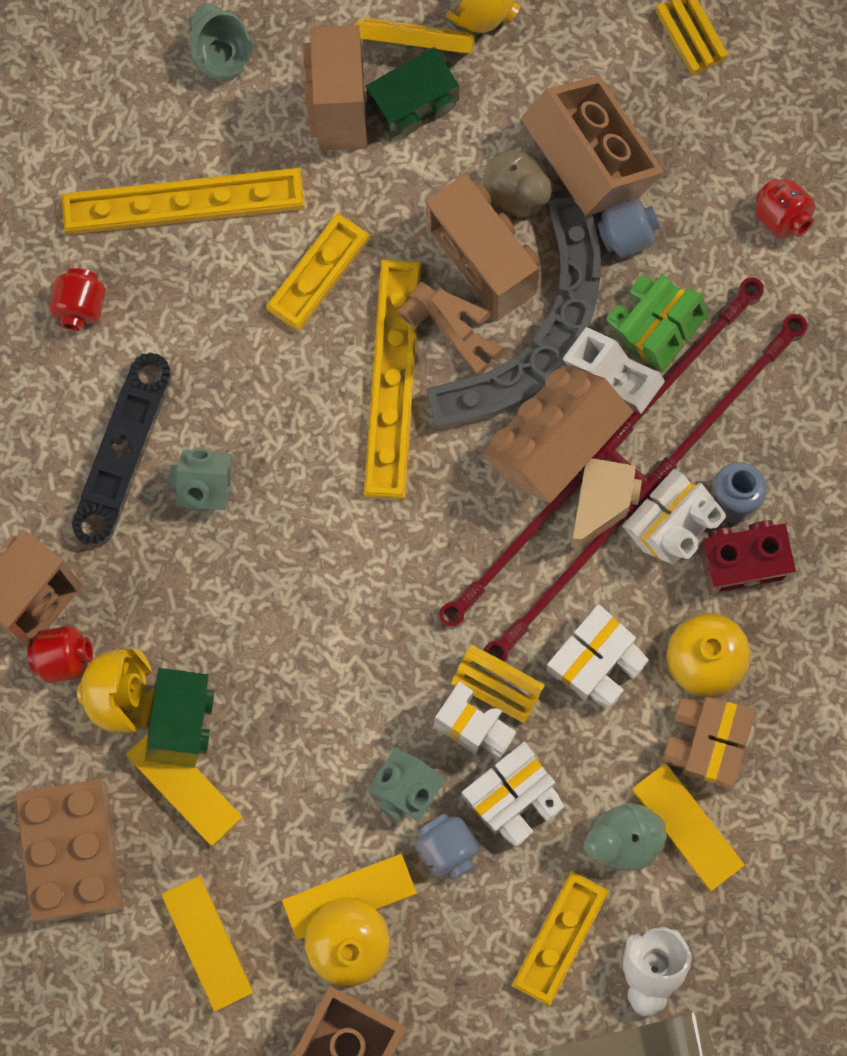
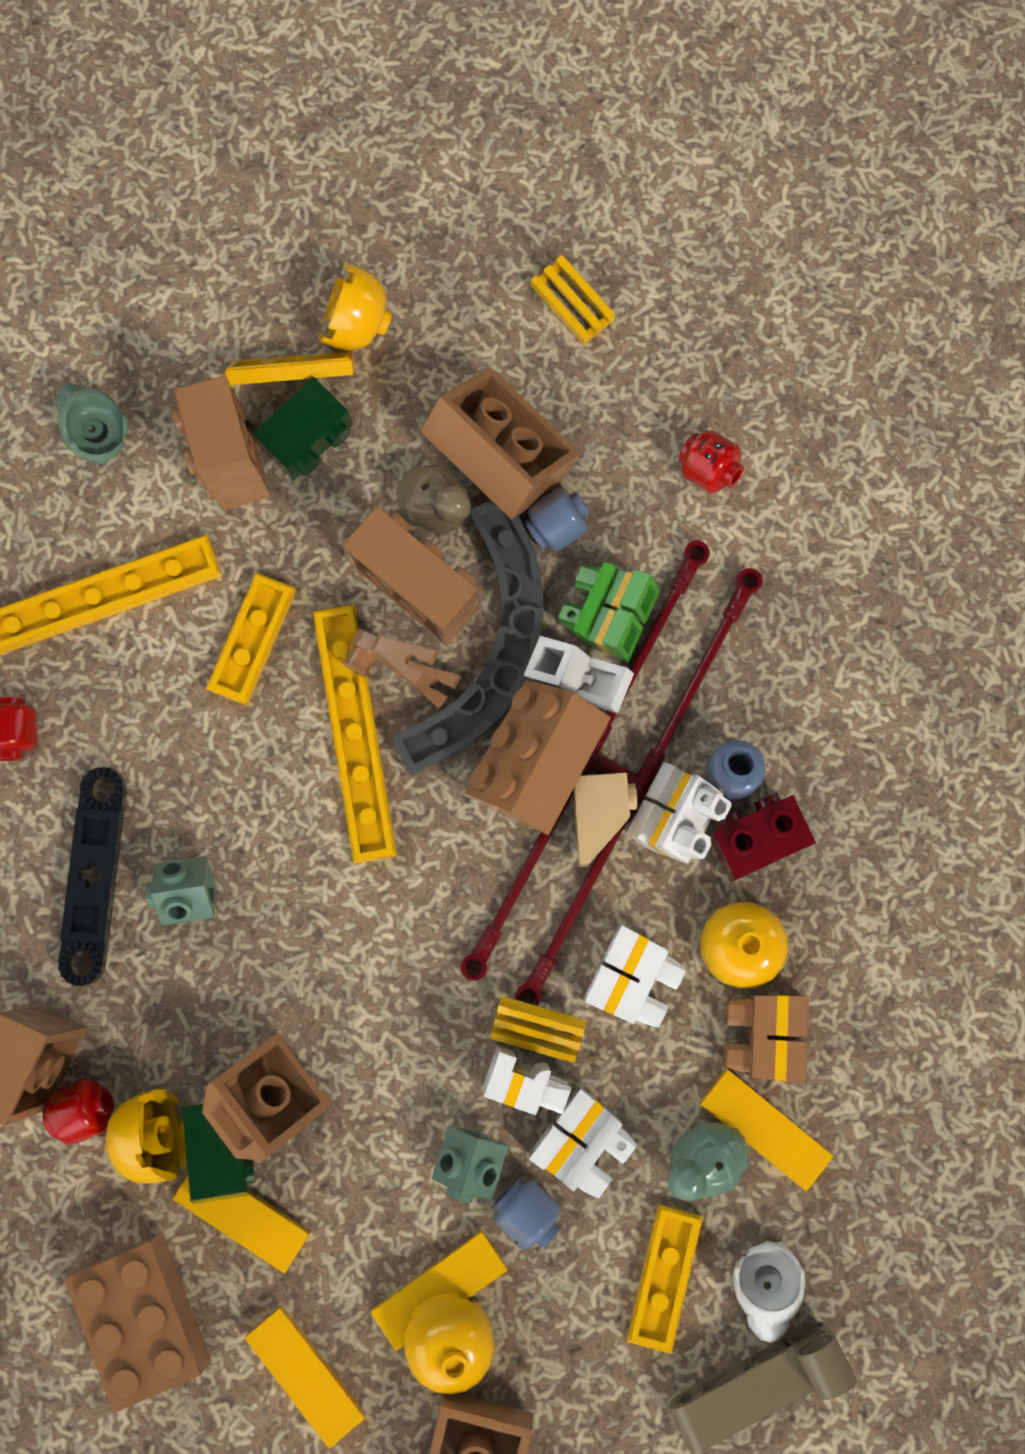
camera: 15 degrees left, 5 degrees up
(235, 677) = (262, 1101): none -> medium nougat slope

